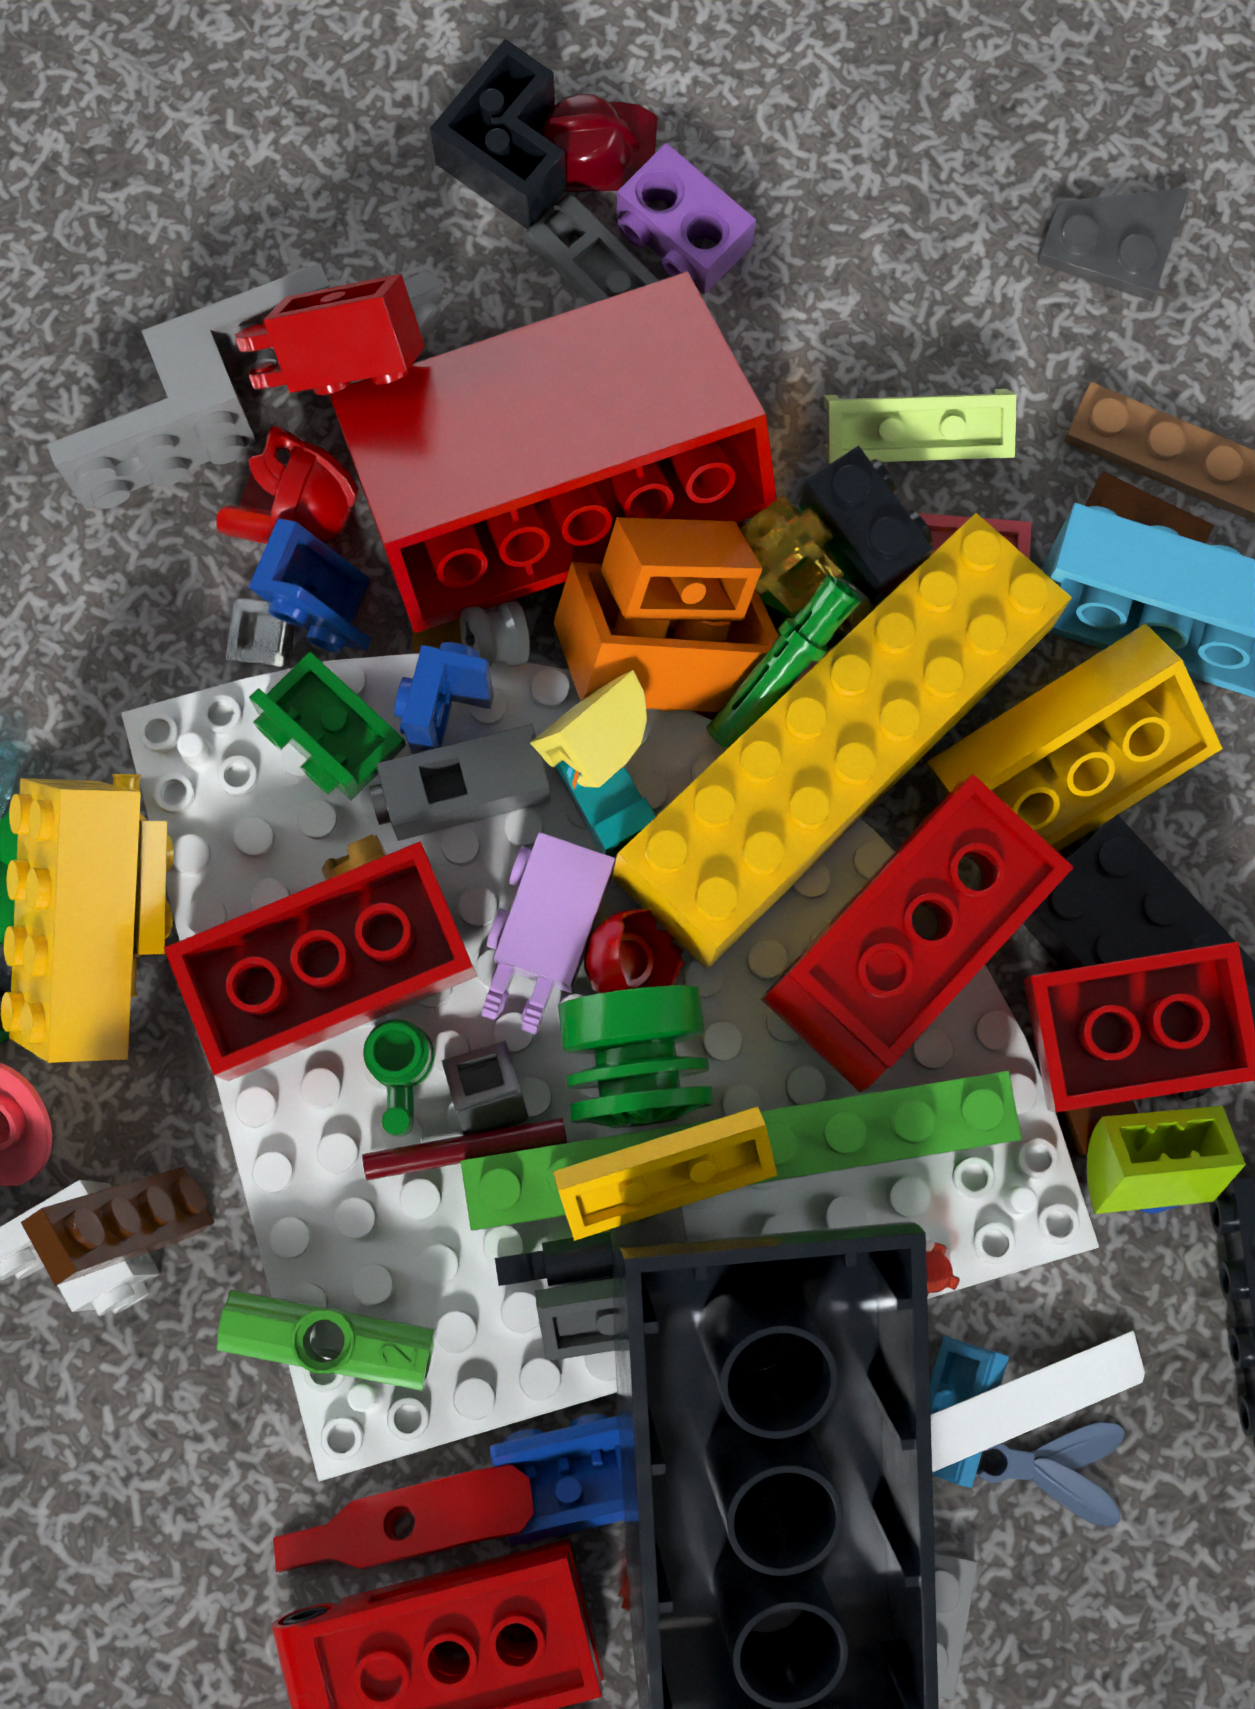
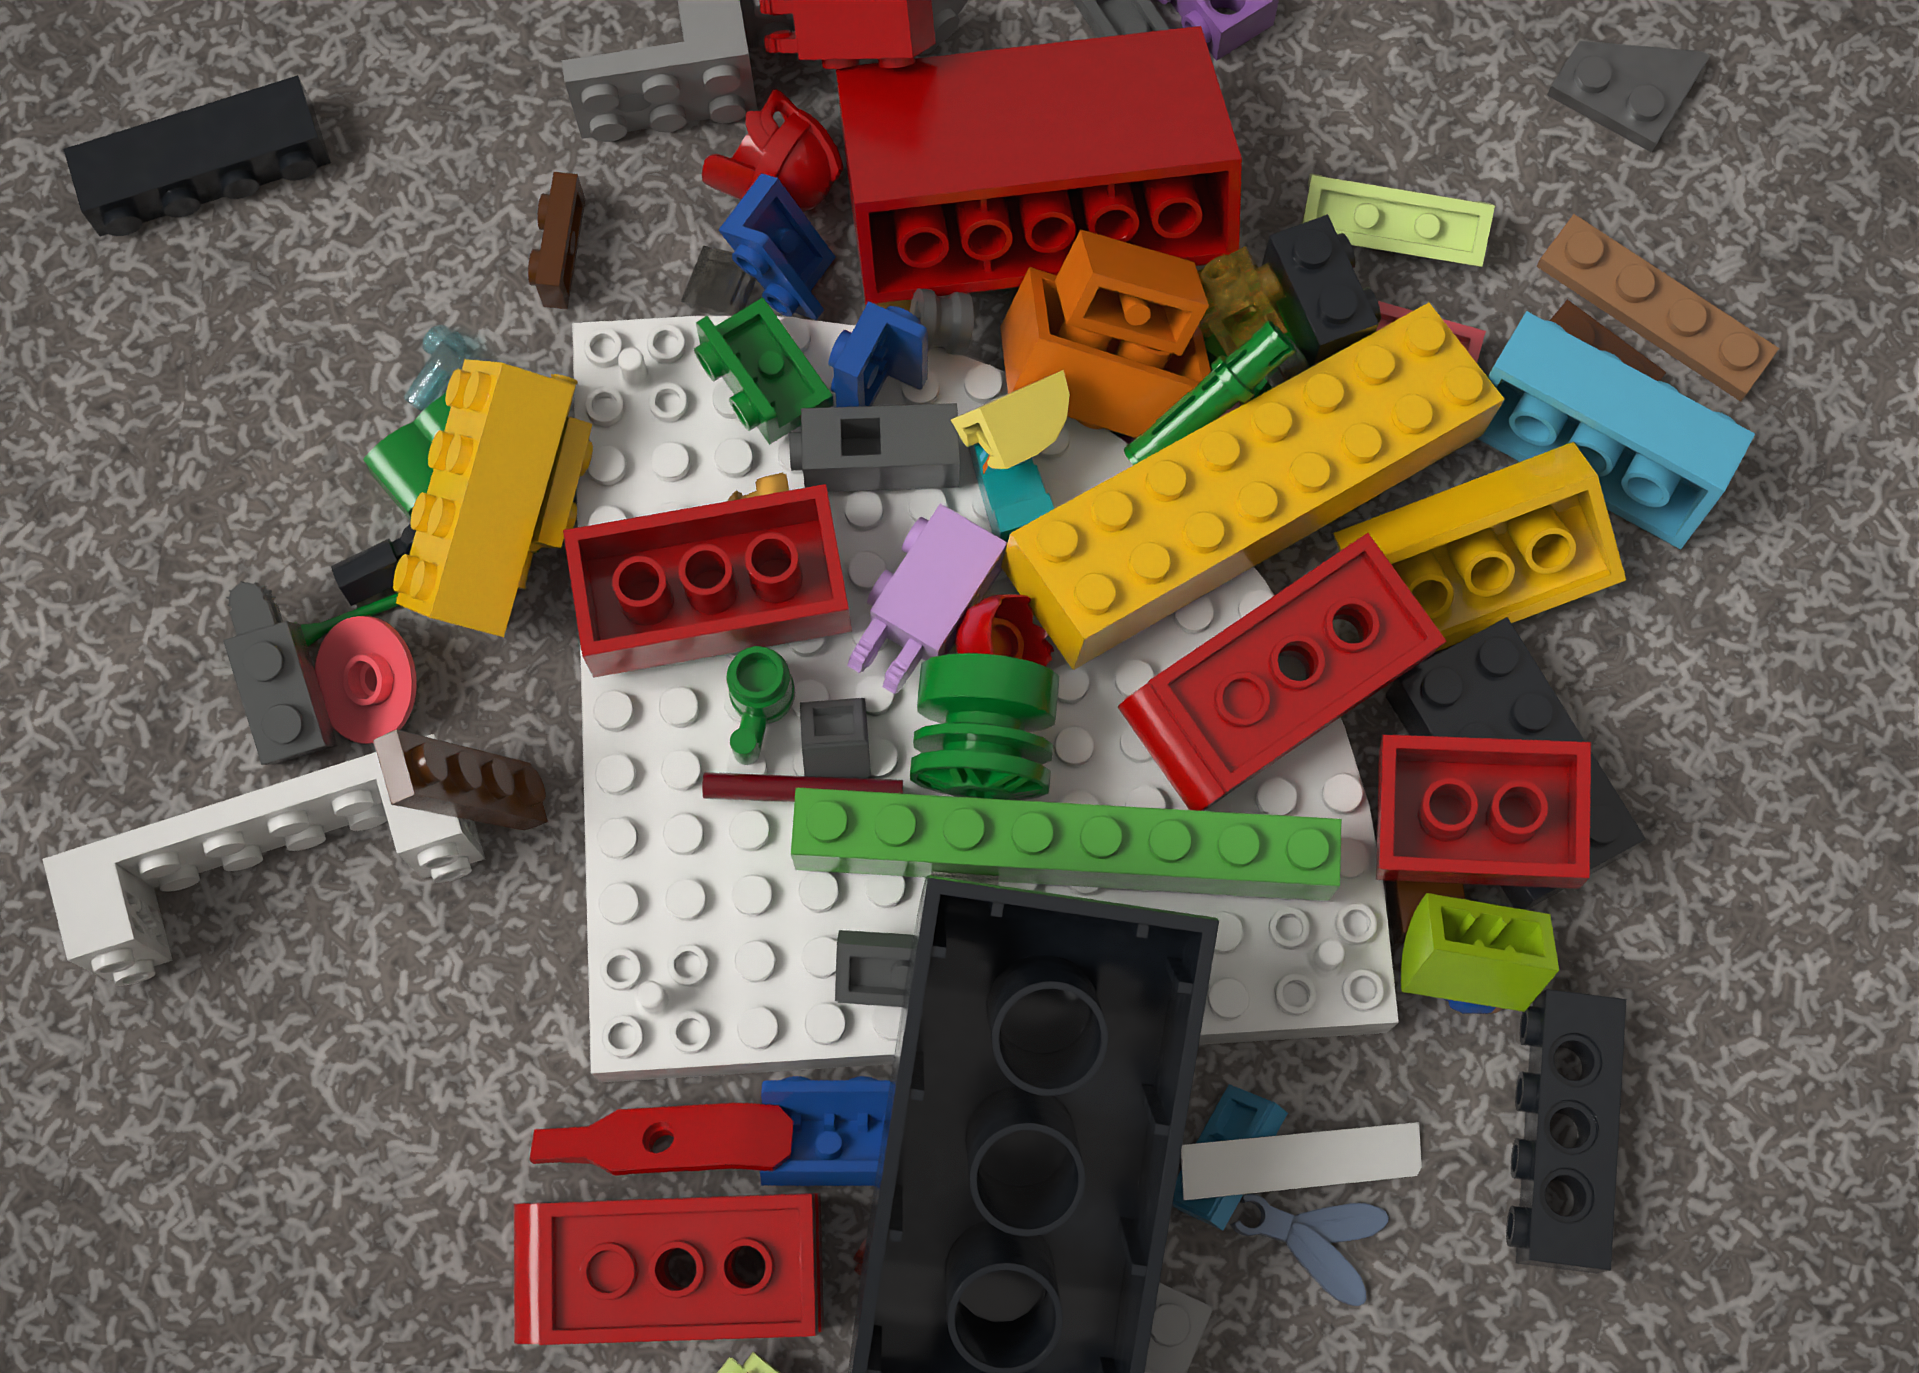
camera: 15 degrees right, 5 degrees down
(84, 600) = (561, 219): none -> reddish brown plate
(282, 1329) = (593, 914): bright green piece -> none
(560, 1262) = (866, 911): black bar -> none
(666, 1173) = (988, 833): yellow plate -> none
(939, 1270) = (1227, 1004): clear red piece -> none

